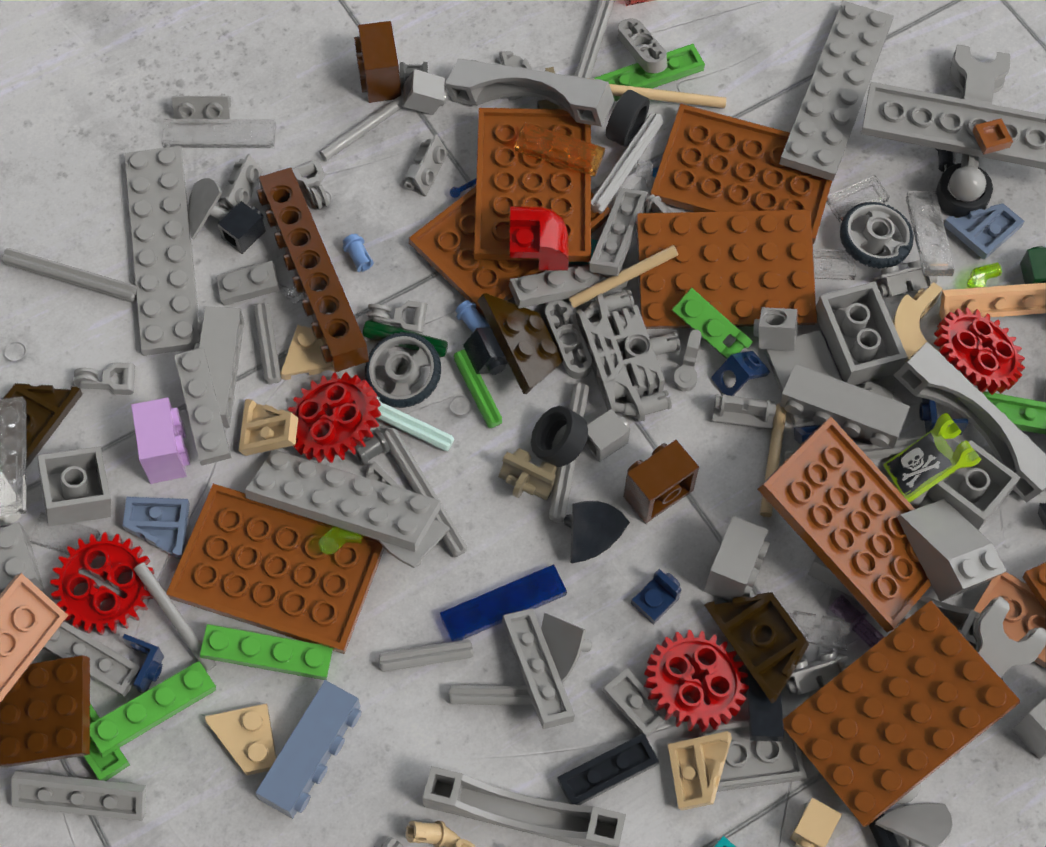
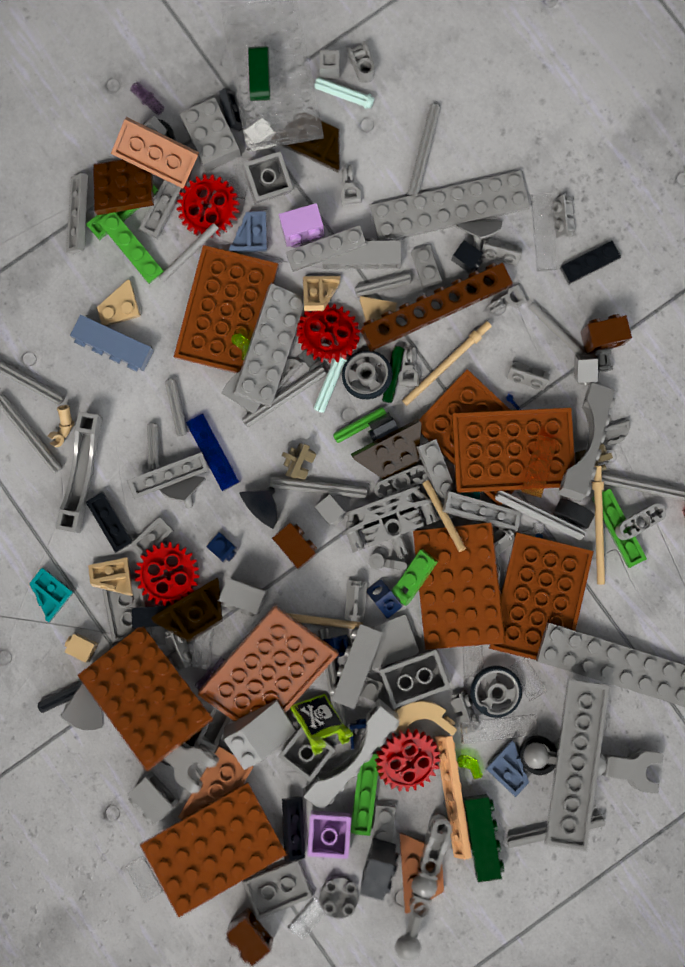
camera: 90 degrees right, 20 degrees up
(152, 666) = (157, 243): dark blue bracket -> none
(266, 652) = (170, 310): bright green plate -> none
(272, 81) = (590, 262): none -> black plate
(354, 246) = (455, 336): medium blue pin -> none
(363, 229) = (474, 337): none -> tan bar
(467, 312) = (413, 414): medium blue pin -> none
(539, 234) = (462, 454): red brick -> none
(571, 443) = (323, 489): black tyre -> none
(776, 328) = (407, 626): light grey brick -> none
(992, 136) = (565, 772): dark orange plate -> none

